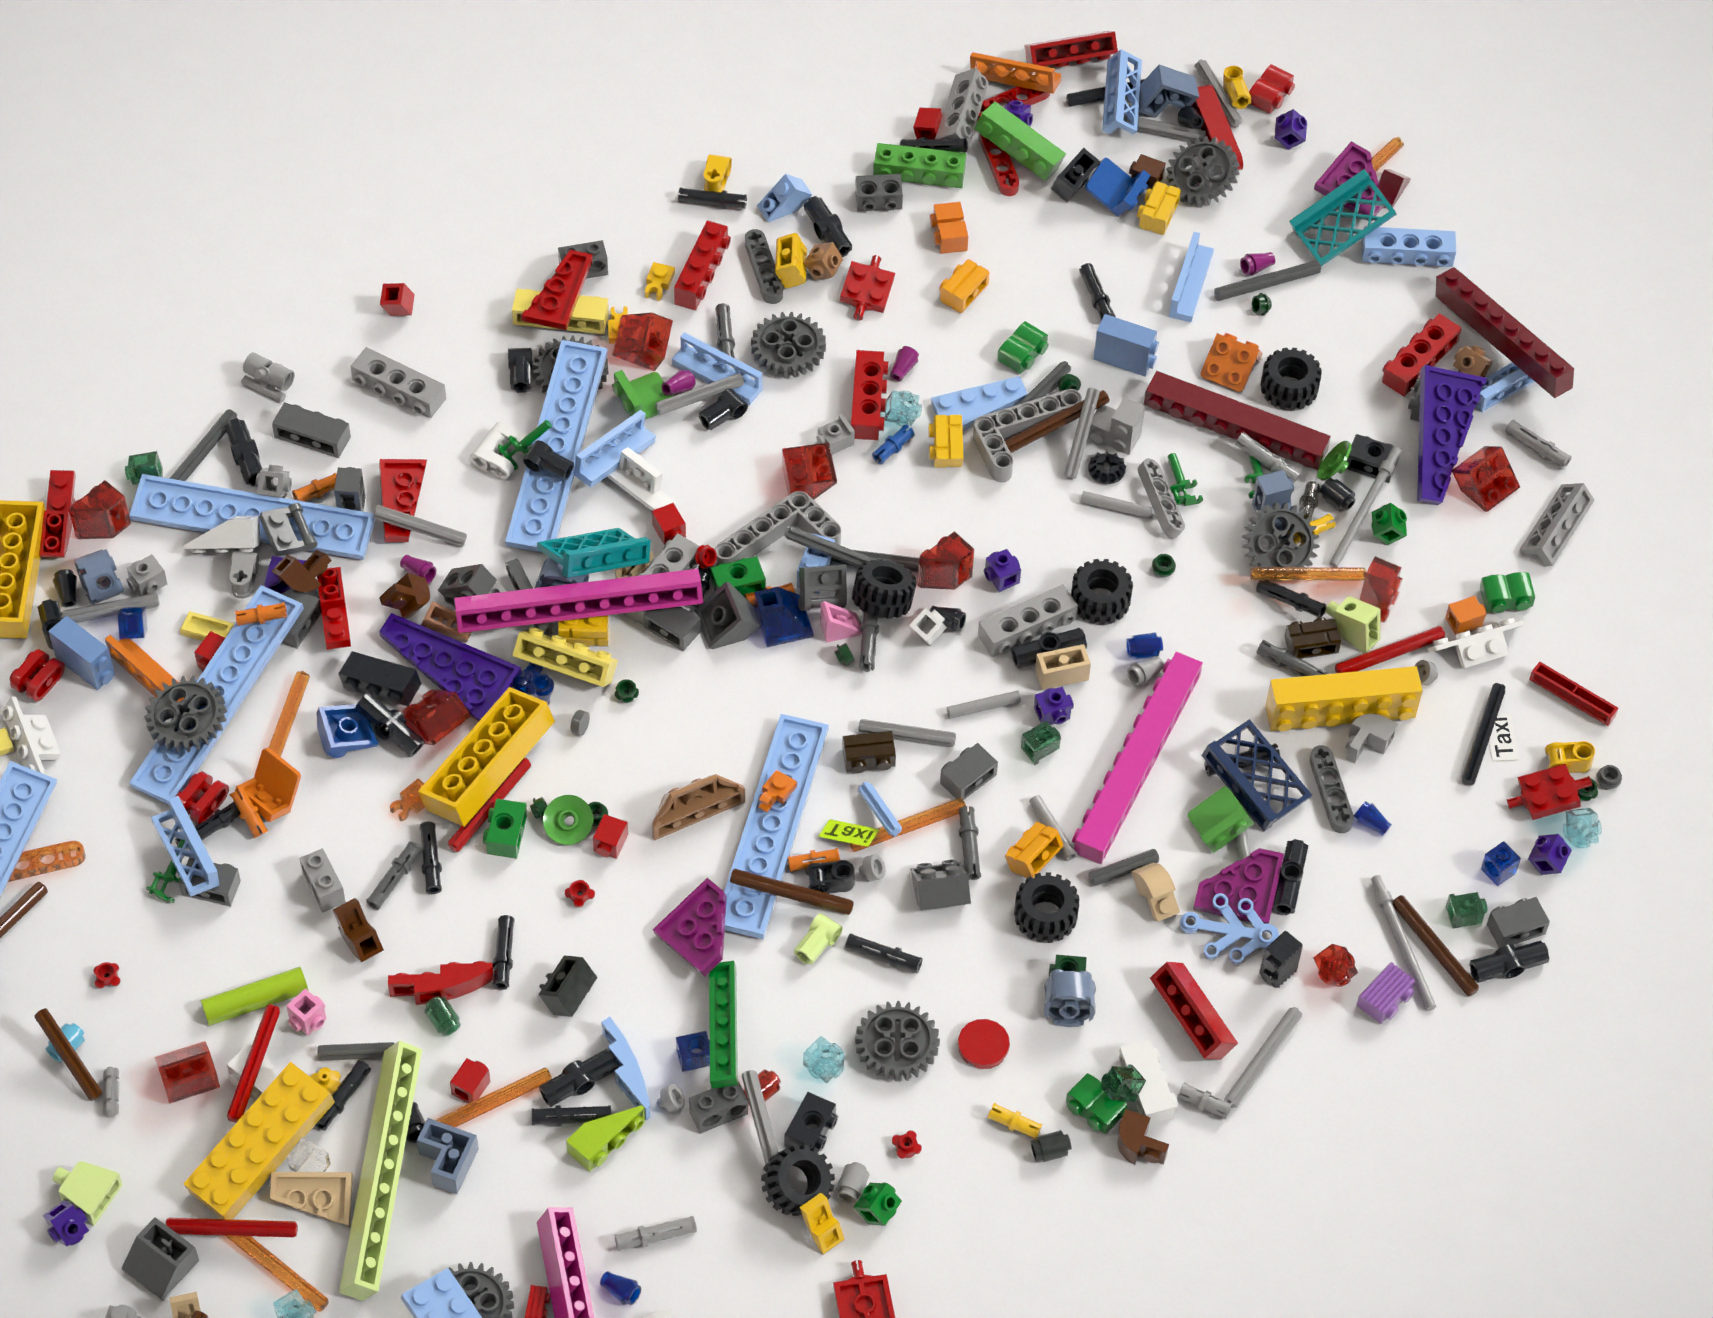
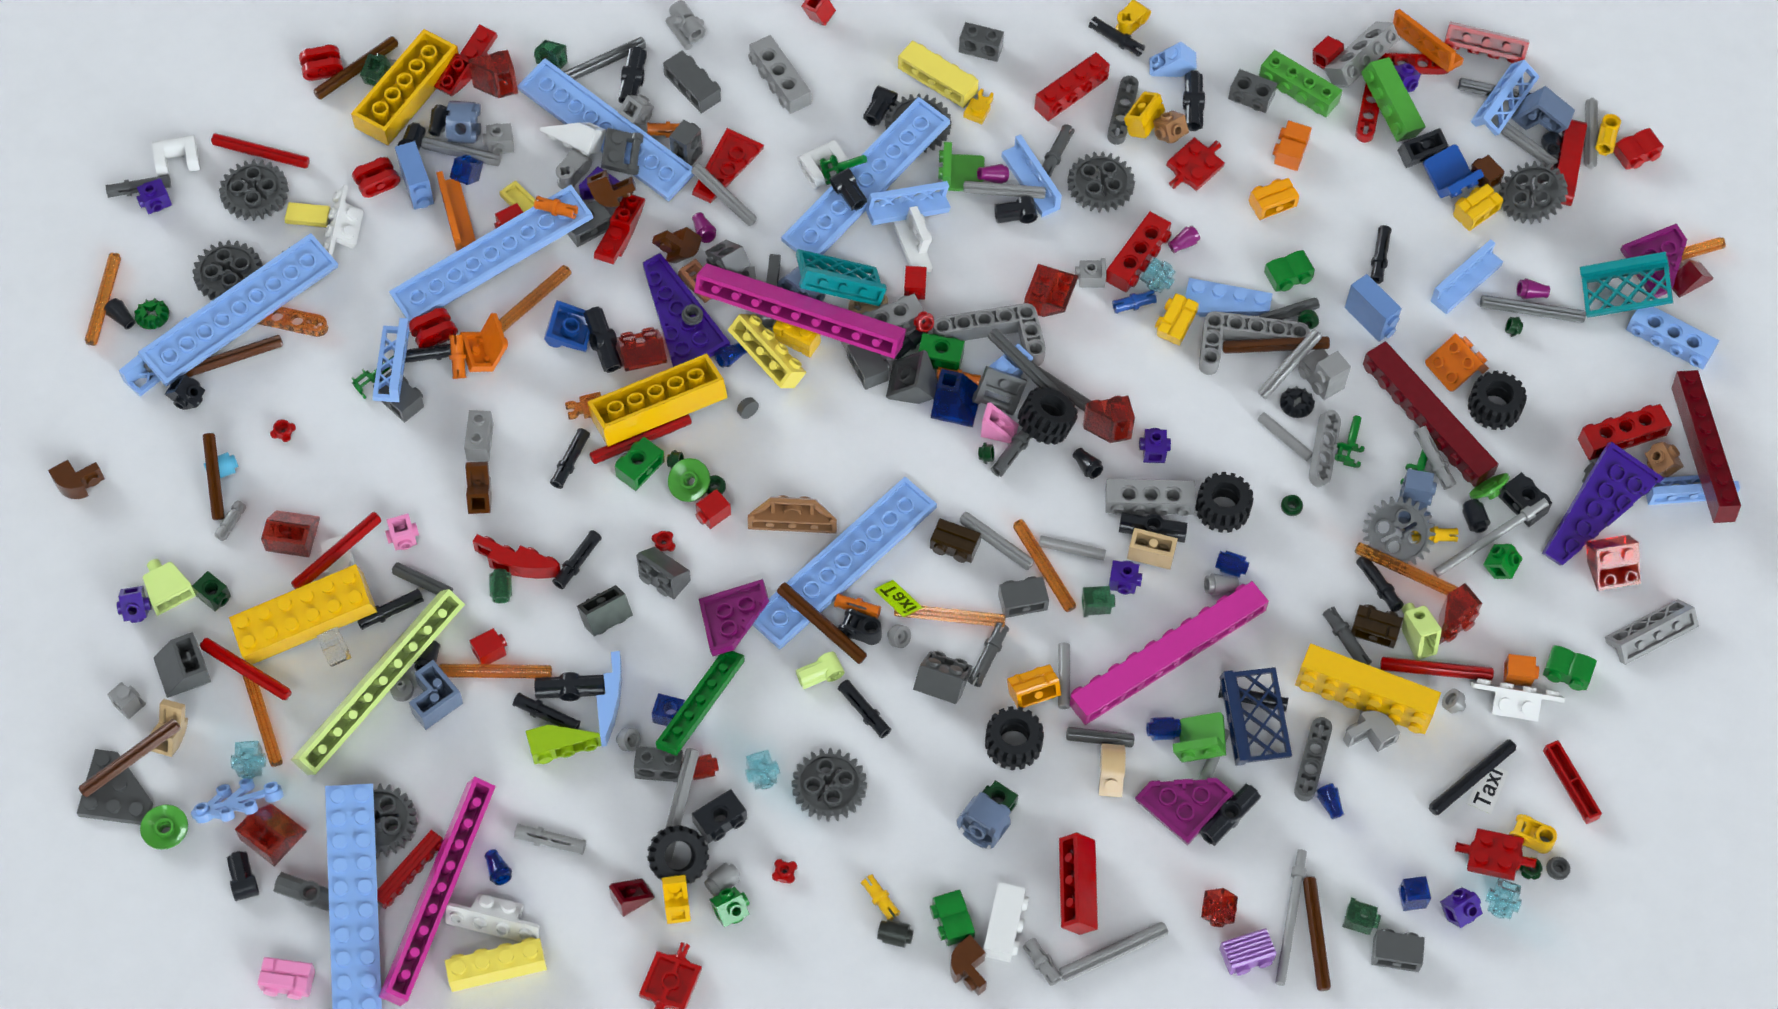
camera: 30 degrees right, 5 degrees up
(136, 1161) = (209, 583): none -> dark green brick
(185, 714) = (455, 258): dark grey gear -> none
(254, 996) = (375, 500): lime brick -> none
(316, 1193) = (324, 675): tan wing -> none
(328, 1079) = (386, 592): yellow plant -> none
(380, 678) = (617, 300): black brick -> none
(409, 1168) = (402, 690): none -> light grey tile
(410, 853) = (557, 446): dark grey pin -> none
(466, 652) = (692, 310): none -> dark grey plate
(542, 687) = (733, 367): clear blue cone -> none
(560, 293) = (942, 59): red wing -> none
(601, 921) = (662, 572): none -> dark grey slope
(623, 686) = (799, 395): dark green plate -> none
(642, 339) = (986, 125): clear red slope -> none
(659, 278) = (1033, 82): yellow plate -> none
(770, 1246) = (630, 895): none -> dark red slope
(776, 788) = (861, 535): orange plate -> none
(880, 809) = (933, 591): light blue axle -> none
(928, 625) = (1065, 462): white brick -> none
(957, 145) = (1327, 74): black pin -> none
(968, 733) = (1044, 565): none -> clear orange axle
(983, 1043) = (896, 822): red tile -> none
(1116, 1080) = (978, 913): clear green brick -> none
(1178, 829) = (1163, 728): none -> clear blue brick
(1234, 930) = (1155, 835): light blue plant -> none
(1280, 959) = (1174, 878): black brick -> none
(1290, 129) = (1632, 190): dark purple brick -> none
(1309, 500) = (1447, 510): clear smoke axle -> none
(1509, 961) = (1369, 979): black piece -> none
(1546, 449) = (1683, 563): light grey pin -> none

